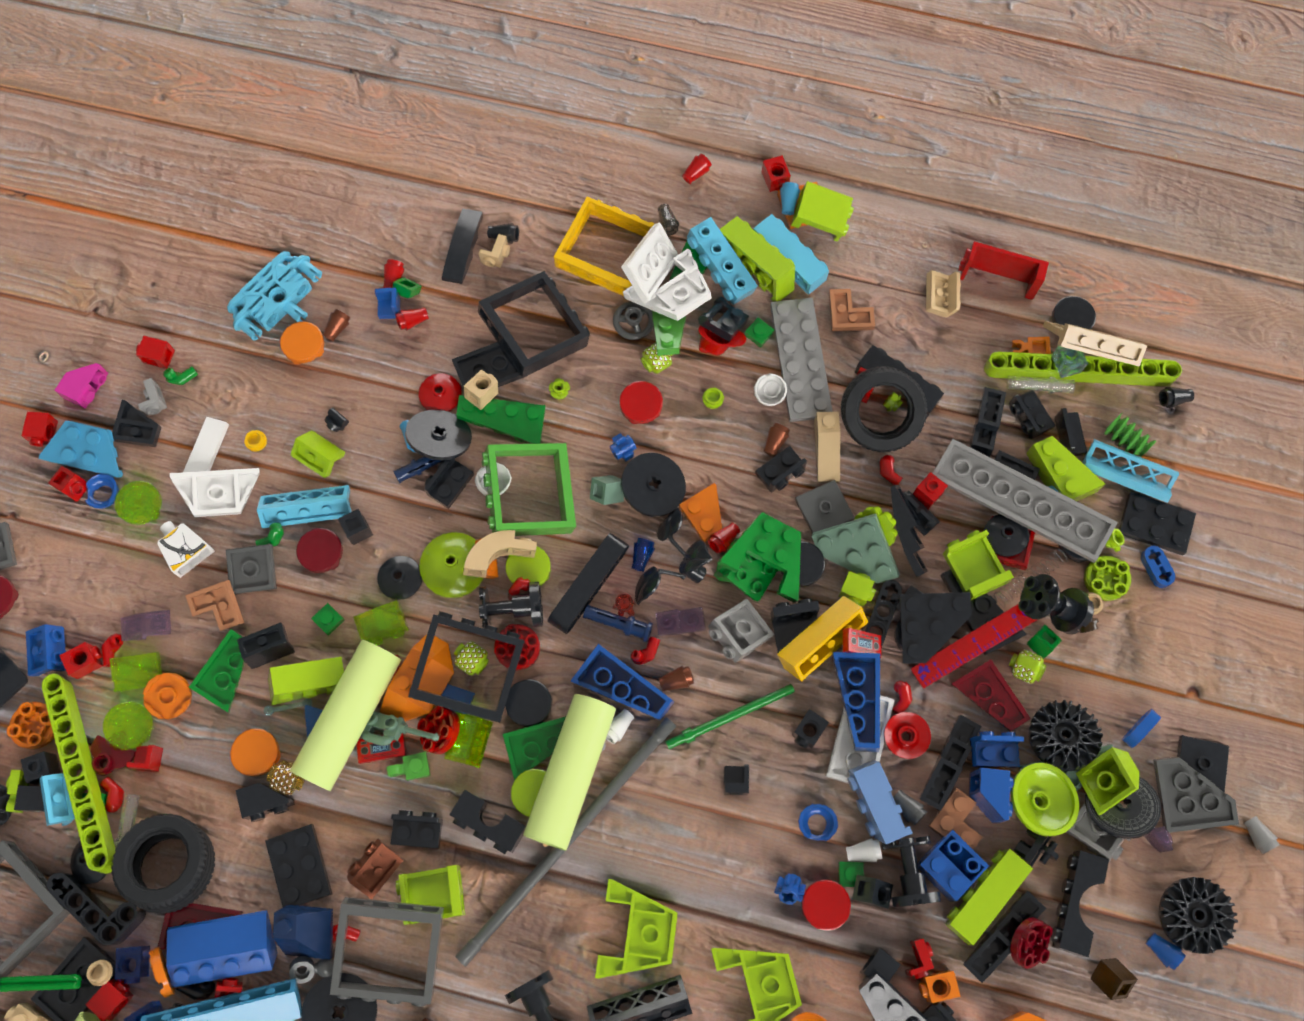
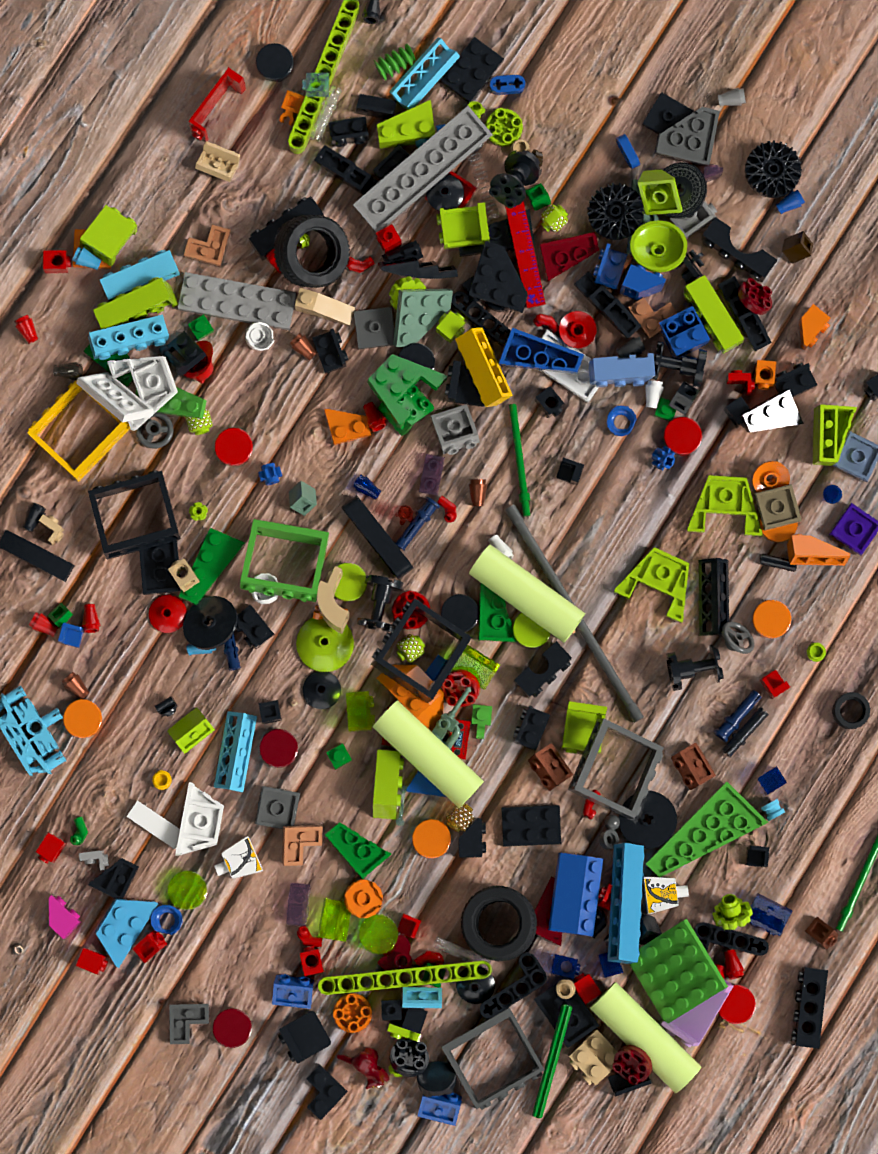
camera: 75 degrees left, 10 degrees up
(160, 972) = (579, 942): orange tile -> none
(265, 646) = (347, 809): black panel -> none
(274, 536) = (255, 784): green arm -> none
(304, 931) = (582, 828): dark blue slope -> none
(519, 584) = (364, 594): red arm -> none
(617, 681) = (469, 535): blue wedge -> none
(646, 498) = (324, 457): black piece -> none
(690, 567) = (394, 449): black plant -> none
(713, 398) = (248, 386): lime plate -> none
(860, 641) = (497, 338): tile -> none
(1098, 343) = (310, 58): tan fence -> none

